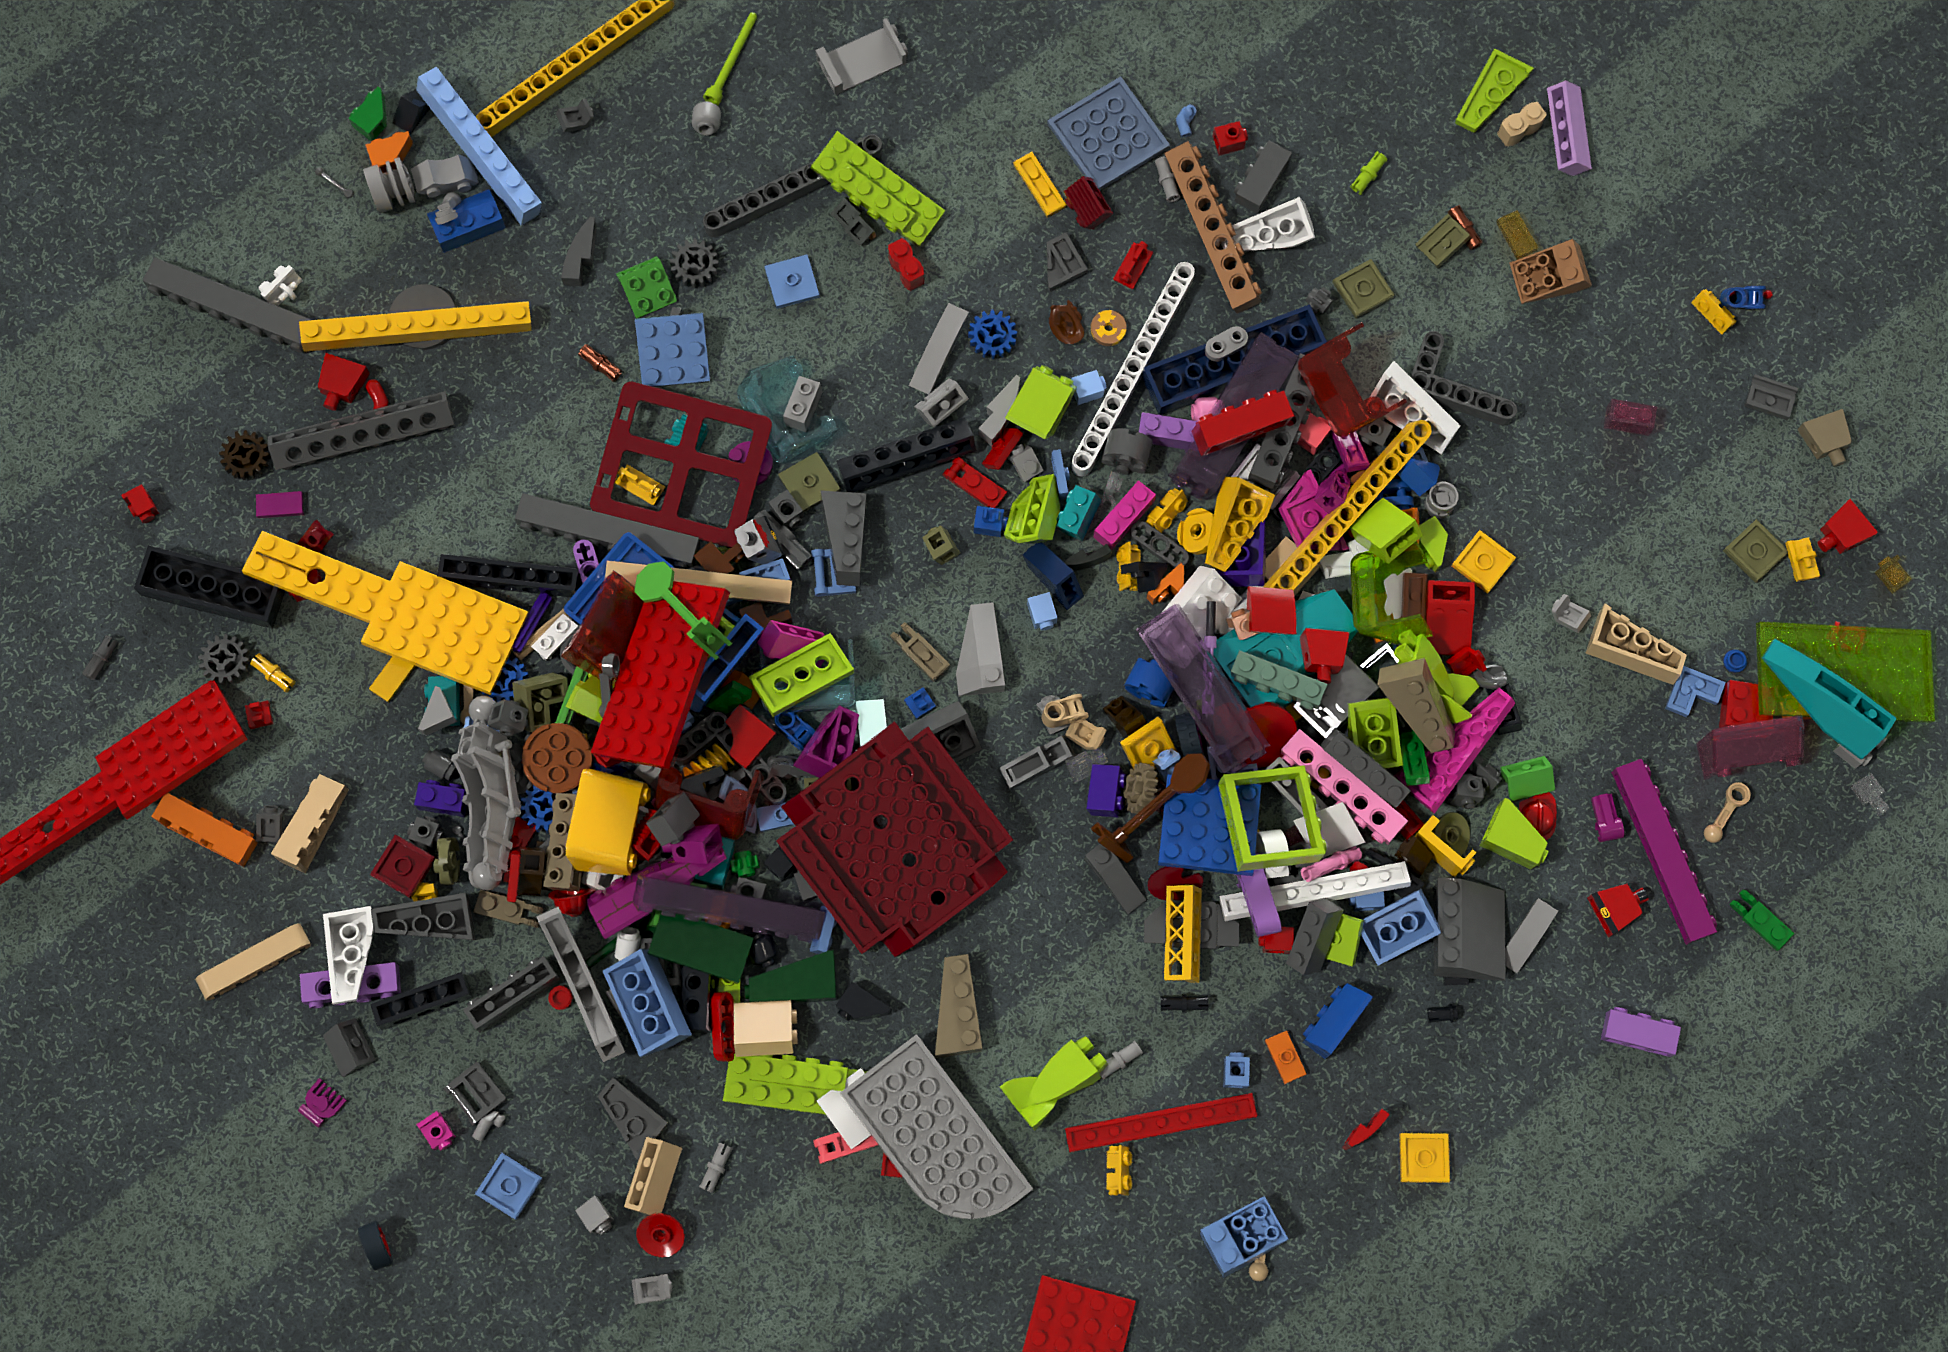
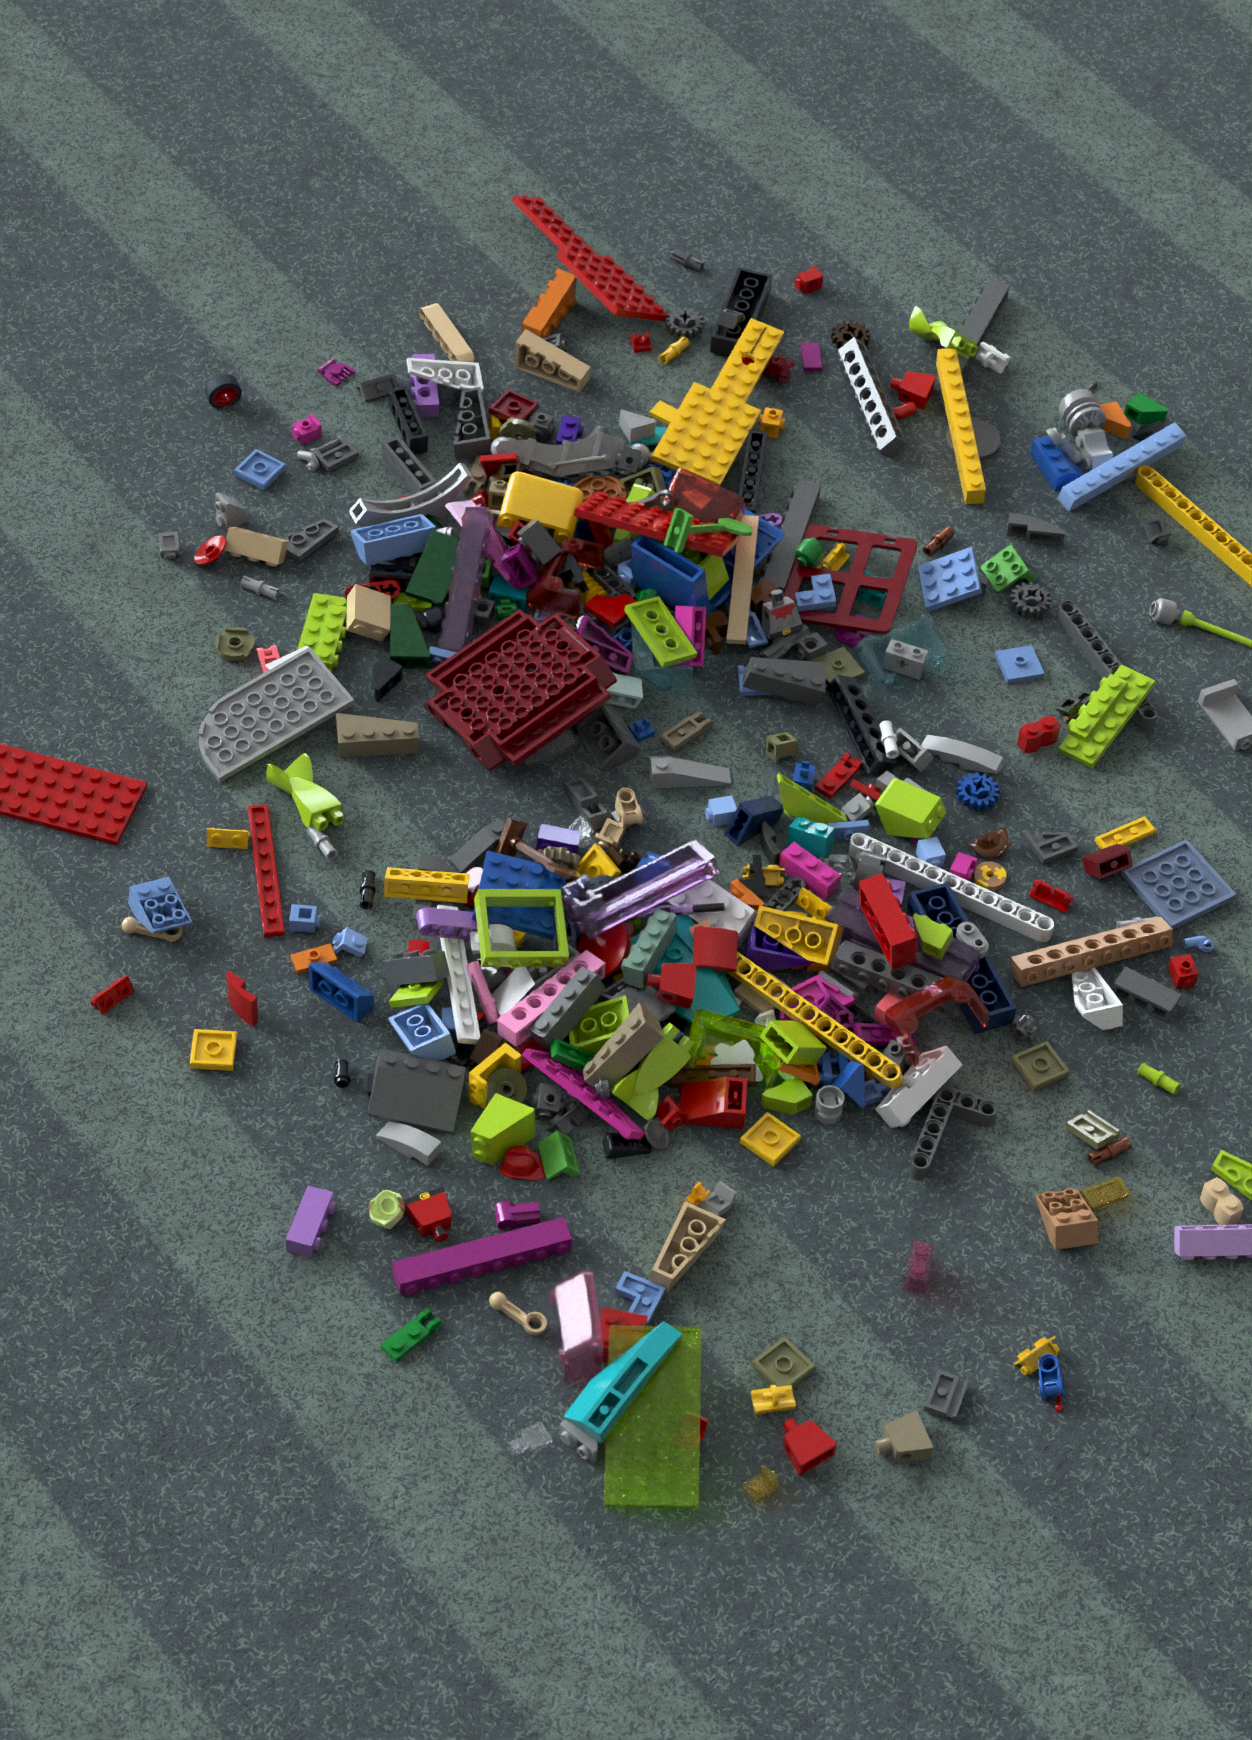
camera: 90 degrees right, 25 degrees down
(235, 598) = (729, 318): none -> dark grey slope
(276, 325) = (940, 332): none -> lime hips
(409, 550) = (772, 422): none -> light orange brick
(648, 506) = (809, 552): none -> green head
(715, 493) = (820, 597): none -> medium blue plate
(804, 1200) = (233, 635): none -> olive plate
(938, 423) = (889, 739): none -> white pin
(1108, 355) = (964, 866): none -> dark pink brick
(1253, 378) = (932, 936): none -> lime slope
(1262, 1018) = (351, 942): none -> light blue bracket
(1351, 1274) = (113, 995): none -> red hinge
(1460, 728) = (602, 1088): none -> dark grey plate
(1569, 637) = (698, 1193): none -> light orange plate
(1621, 952) = (386, 1209): none -> yellowish green hair

